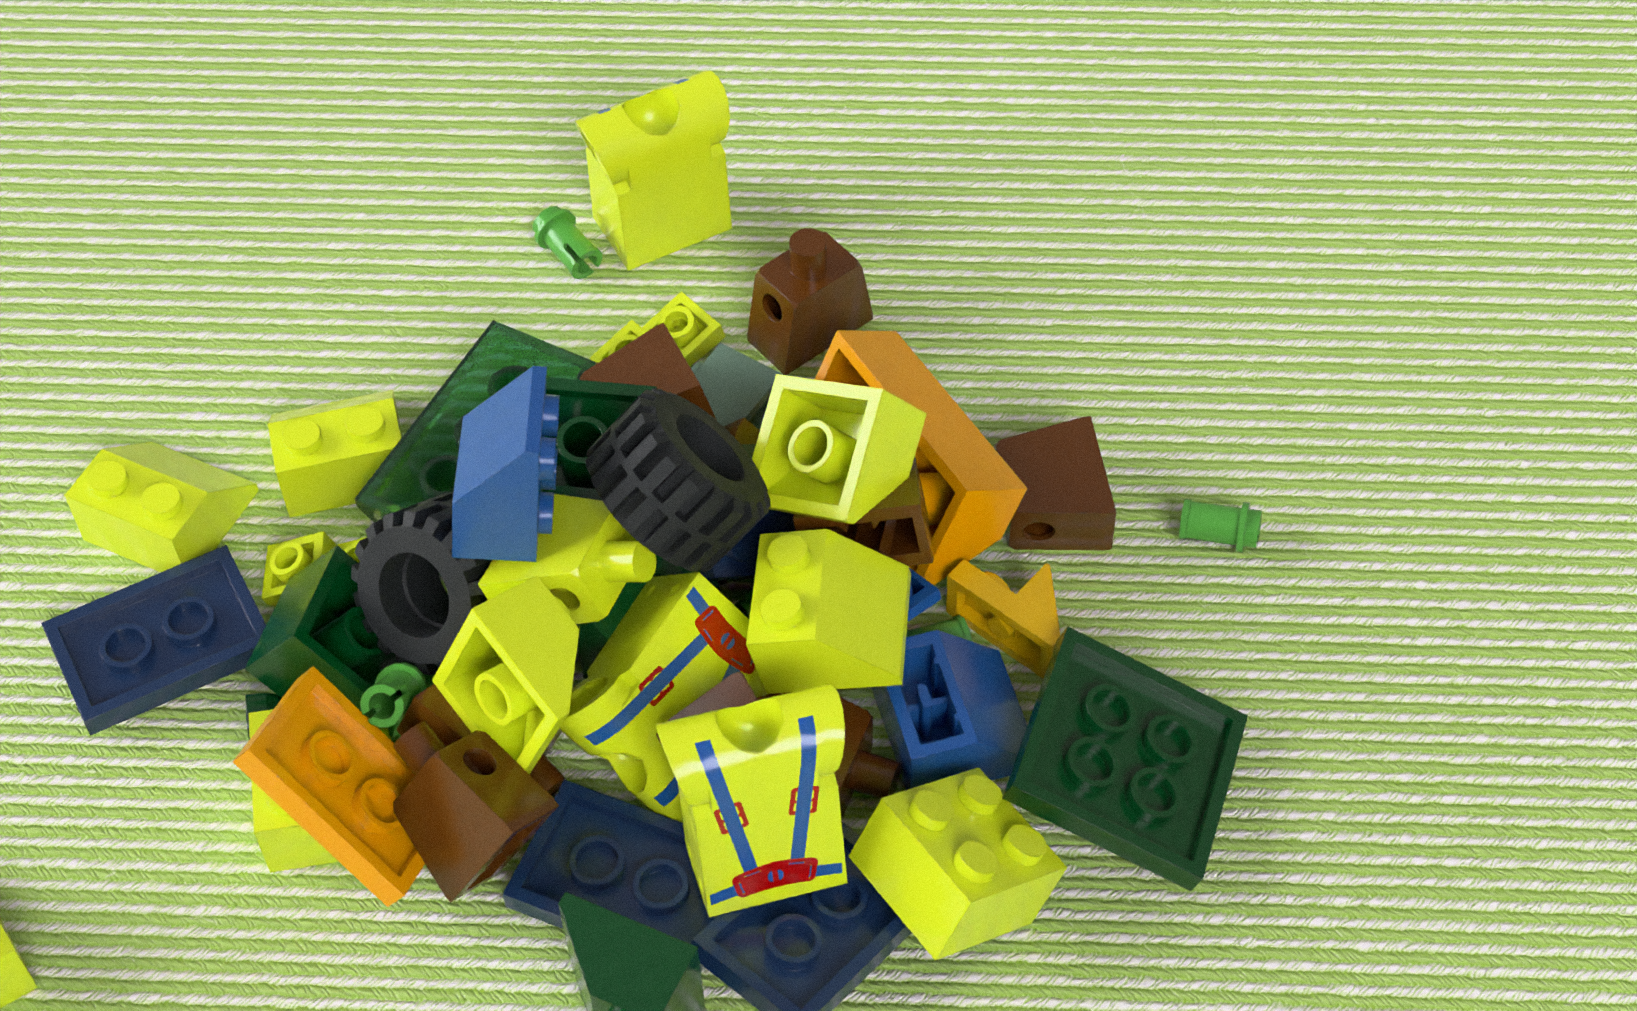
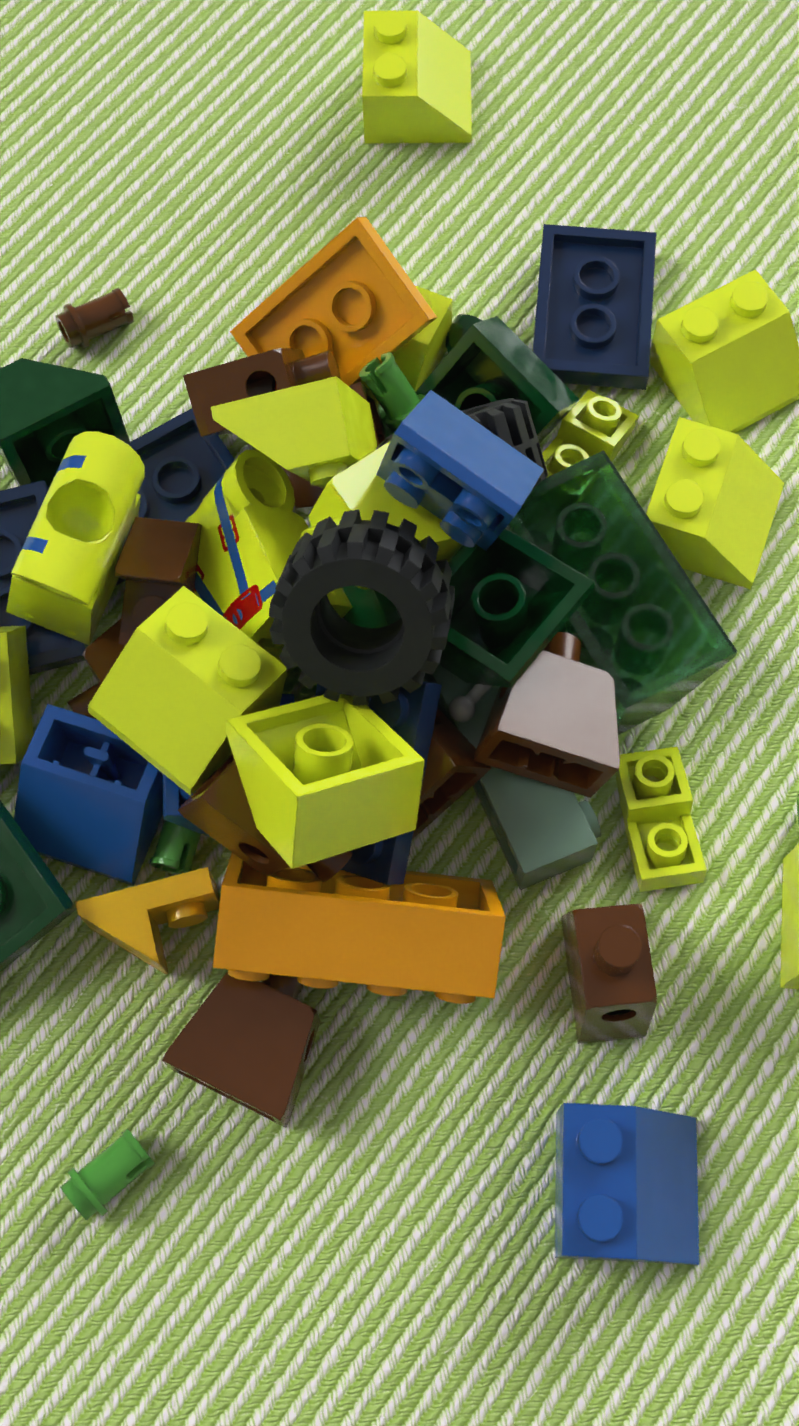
camera: 125 degrees right, 15 degrees up
(959, 235) = (626, 1185): none -> blue slope

